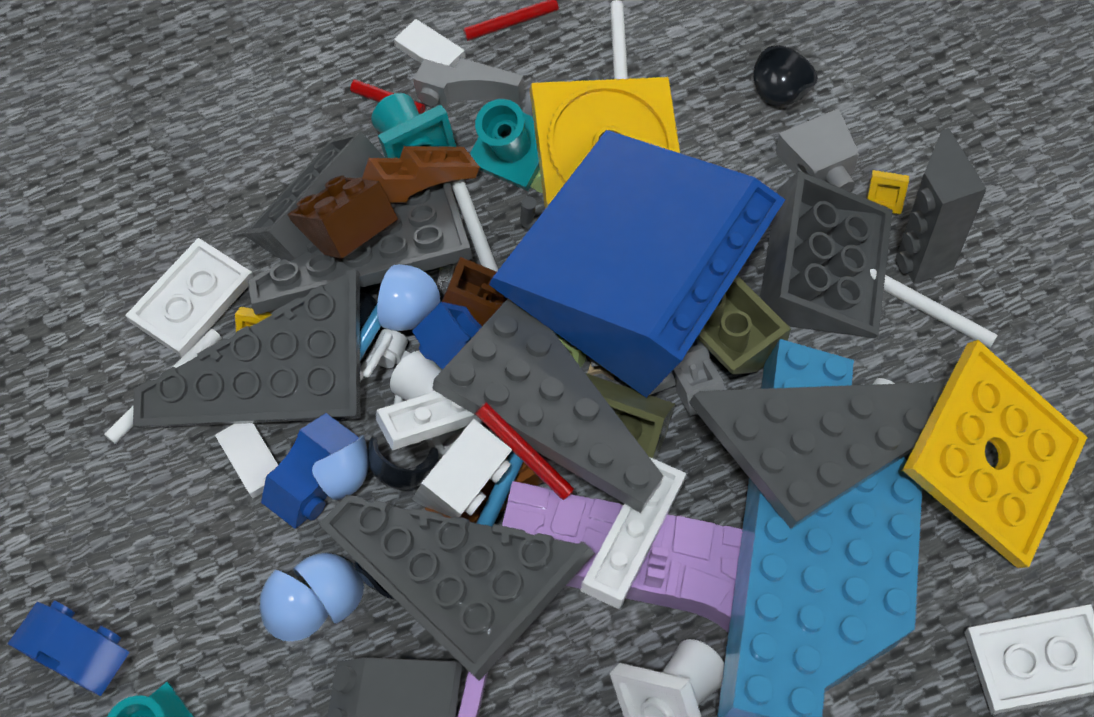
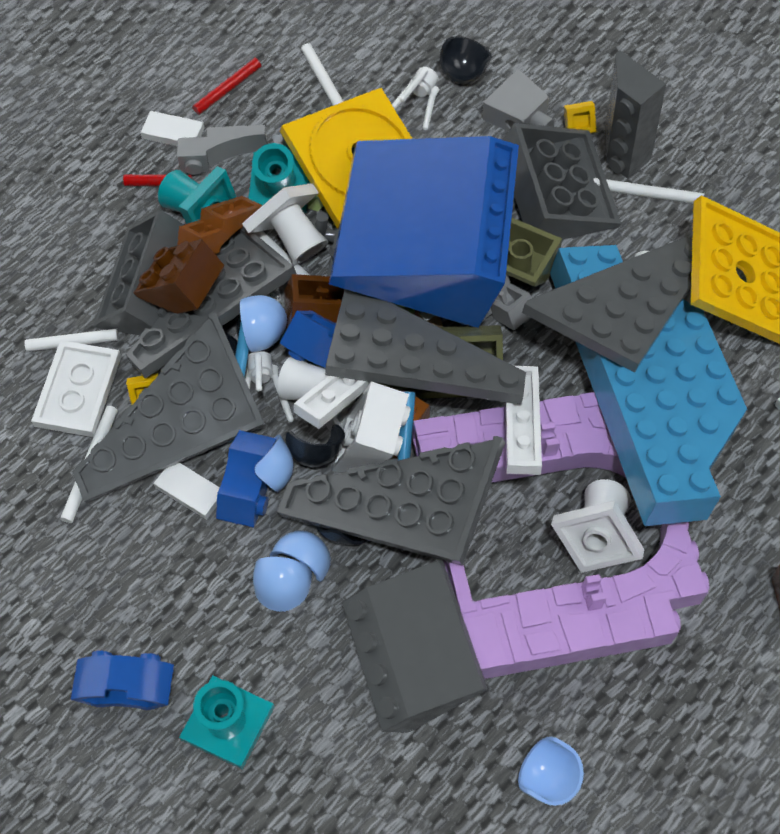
camera: 25 degrees left, 0 degrees up
(218, 242) = (82, 338): none -> white bar
(492, 185) = (290, 222): none -> white plant
(524, 451) = (416, 392): red bar -> none
(723, 89) = (421, 85): none -> white plant

